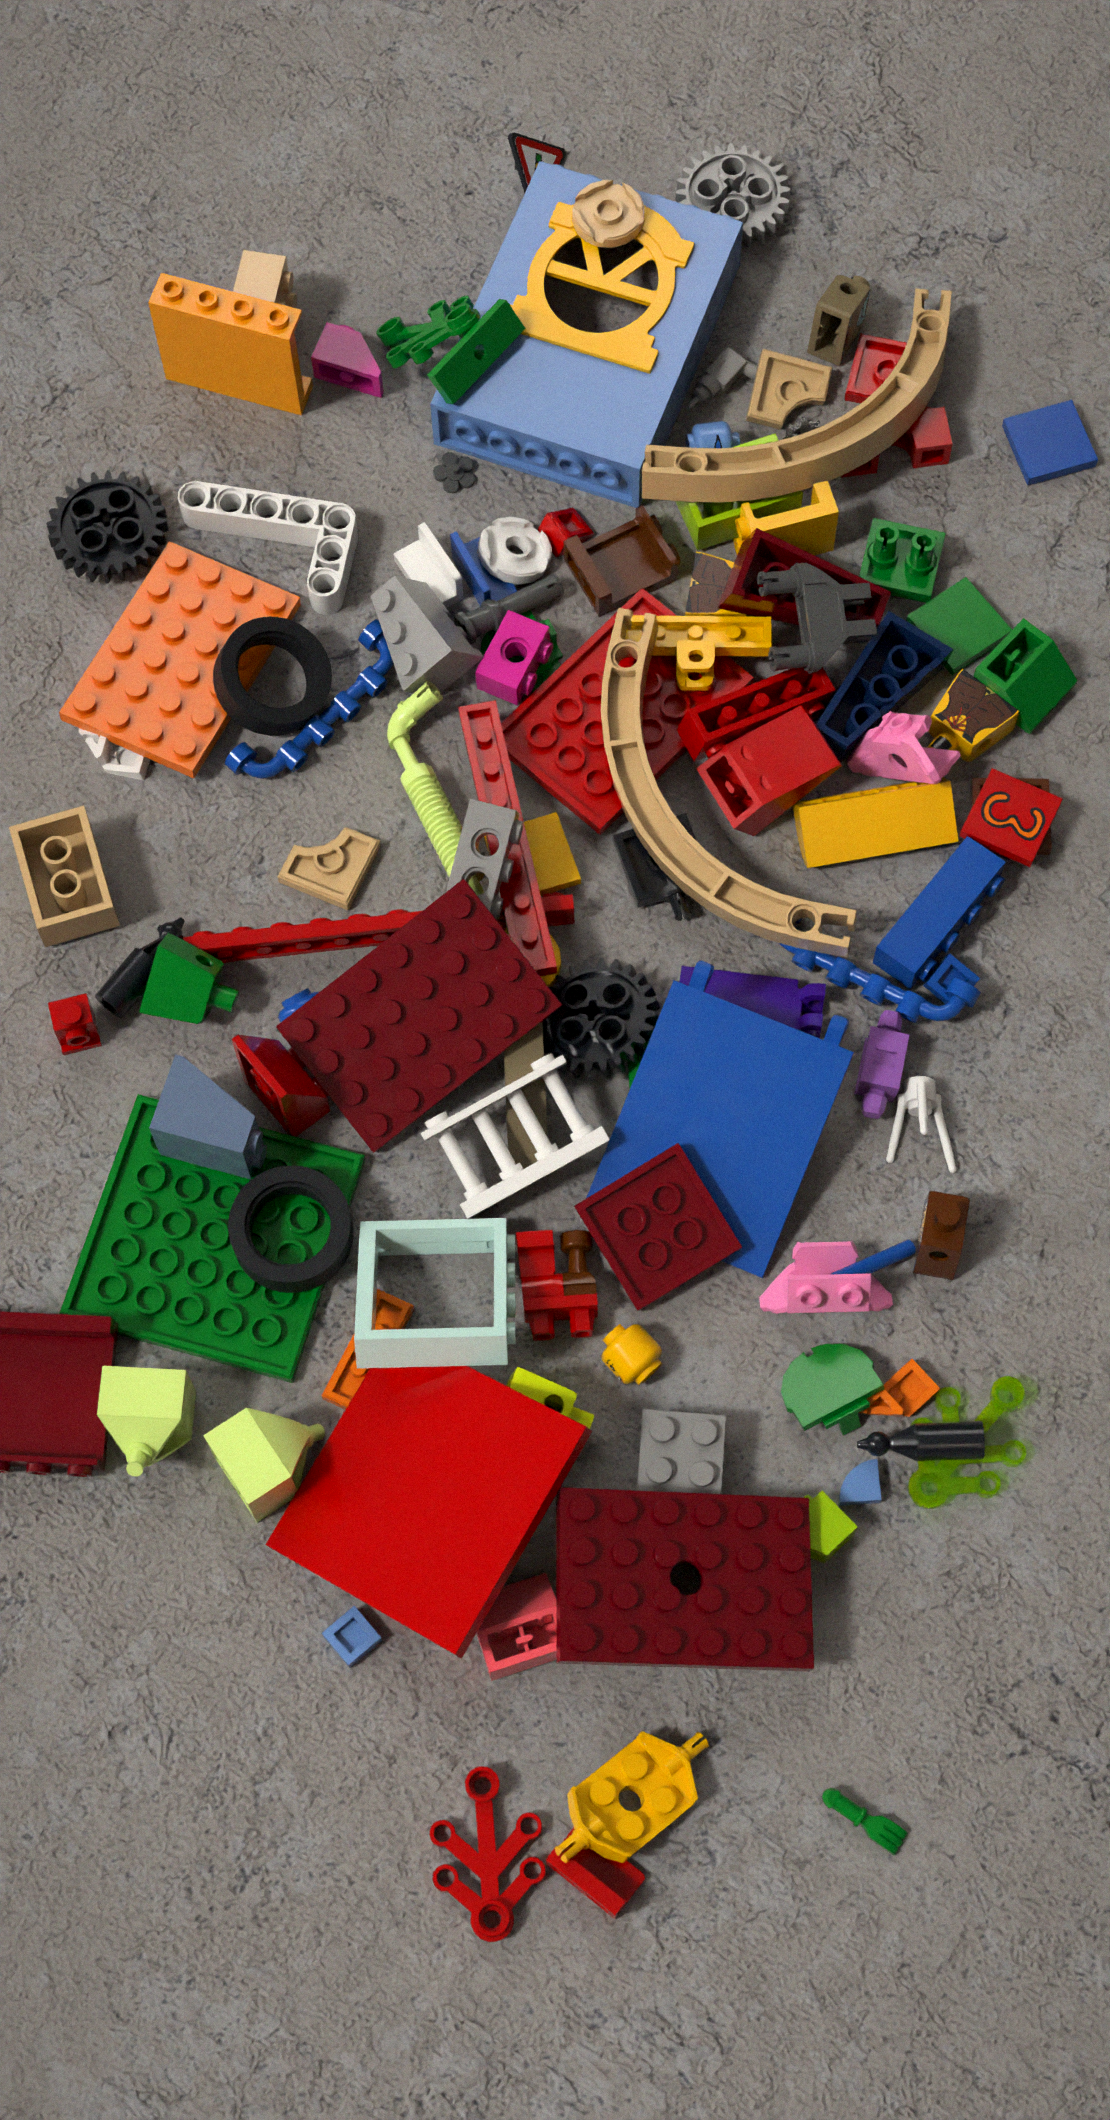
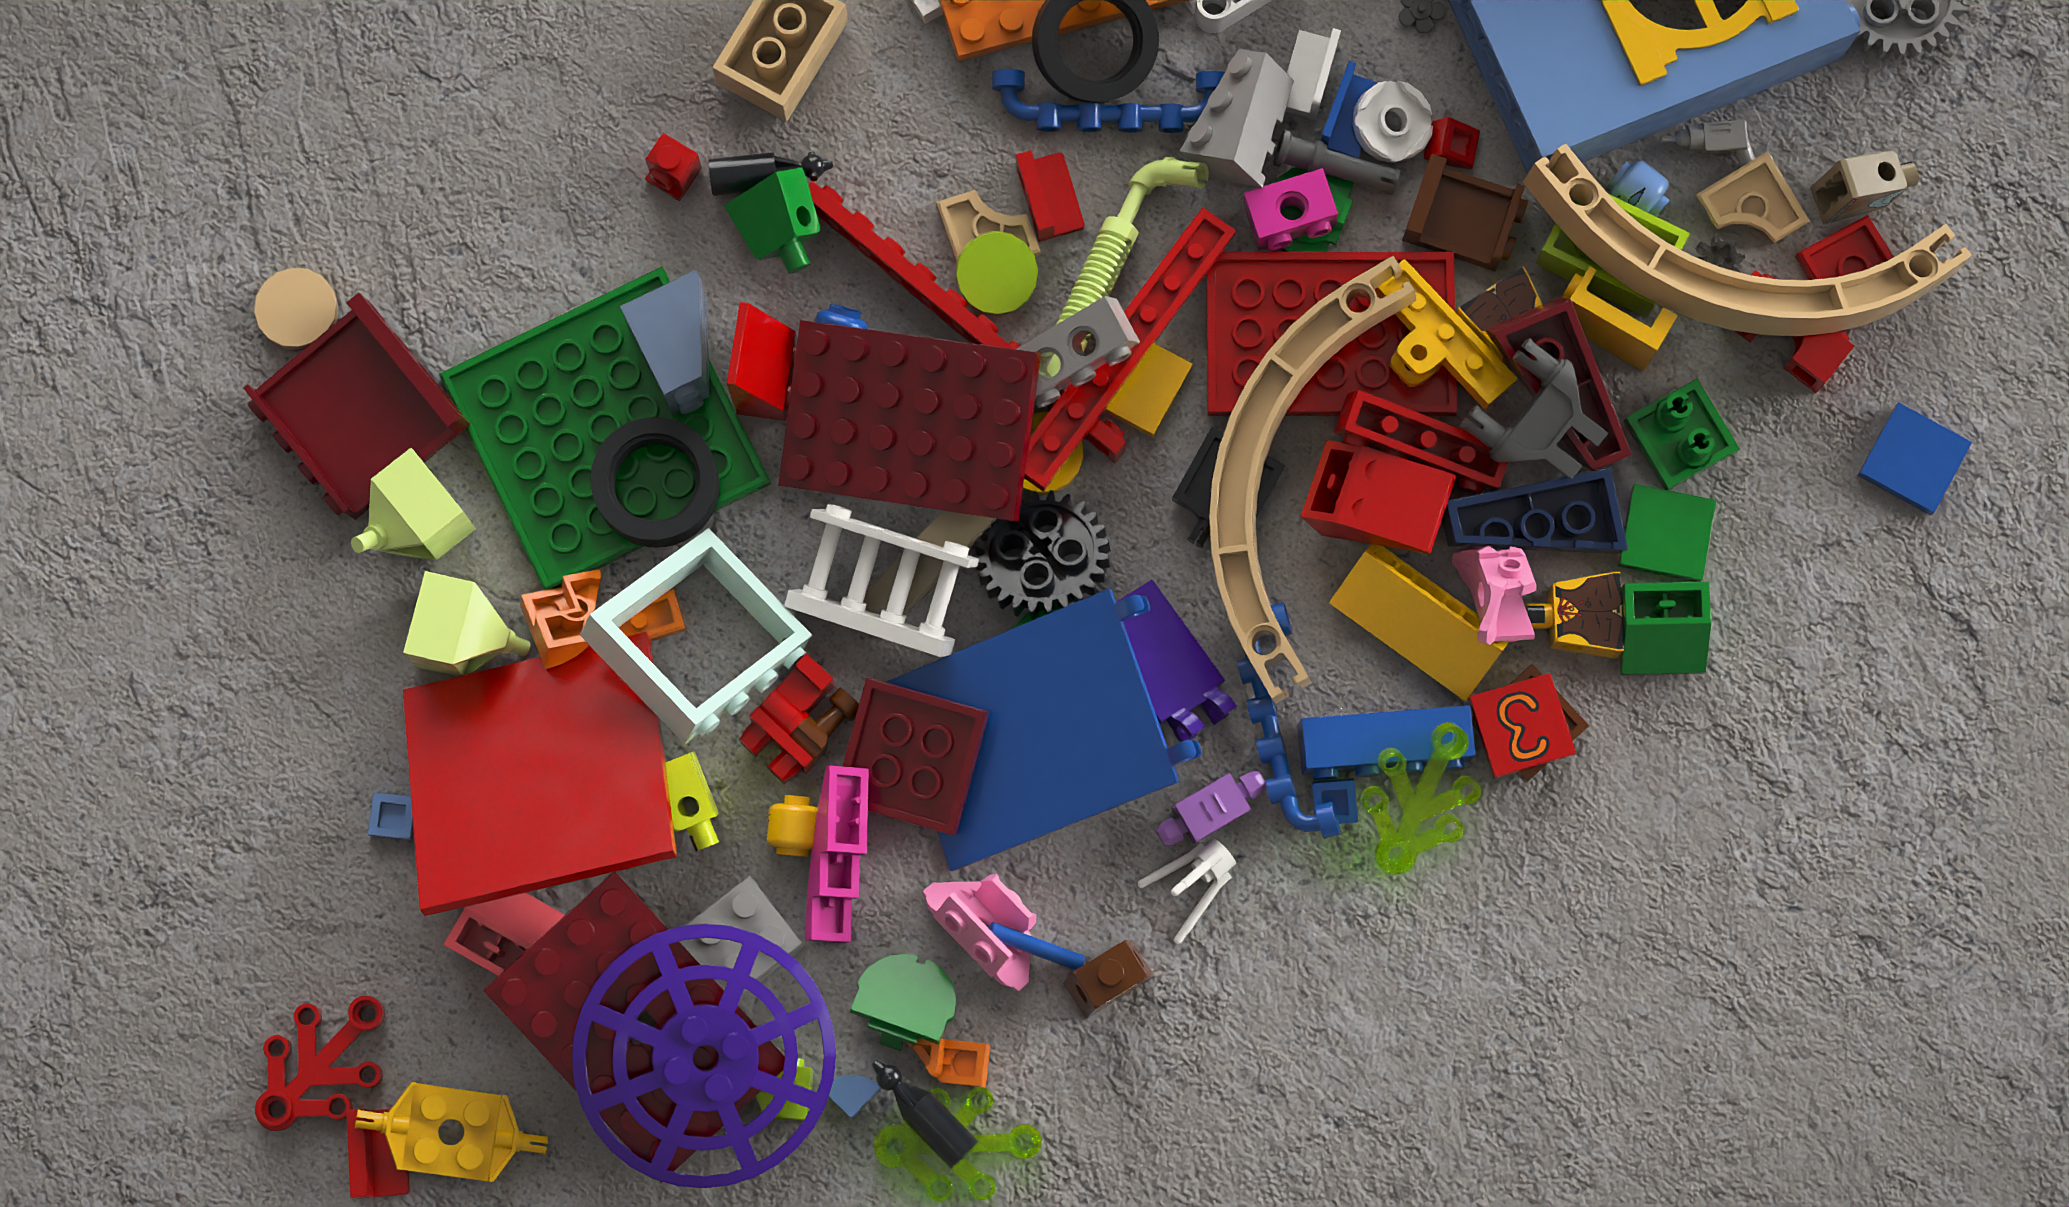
camera: 45 degrees right, 10 degrees up
(324, 1381) = (559, 616): none -> orange slope
(344, 803) = (1049, 195): none -> red panel
(367, 878) = (996, 272): none -> lime tile
(685, 1346) = (836, 854): none -> dark pink slope
(735, 1564) = (683, 1034): none -> dark purple dish
(1004, 926) = (1419, 804): none -> clear neon green plant

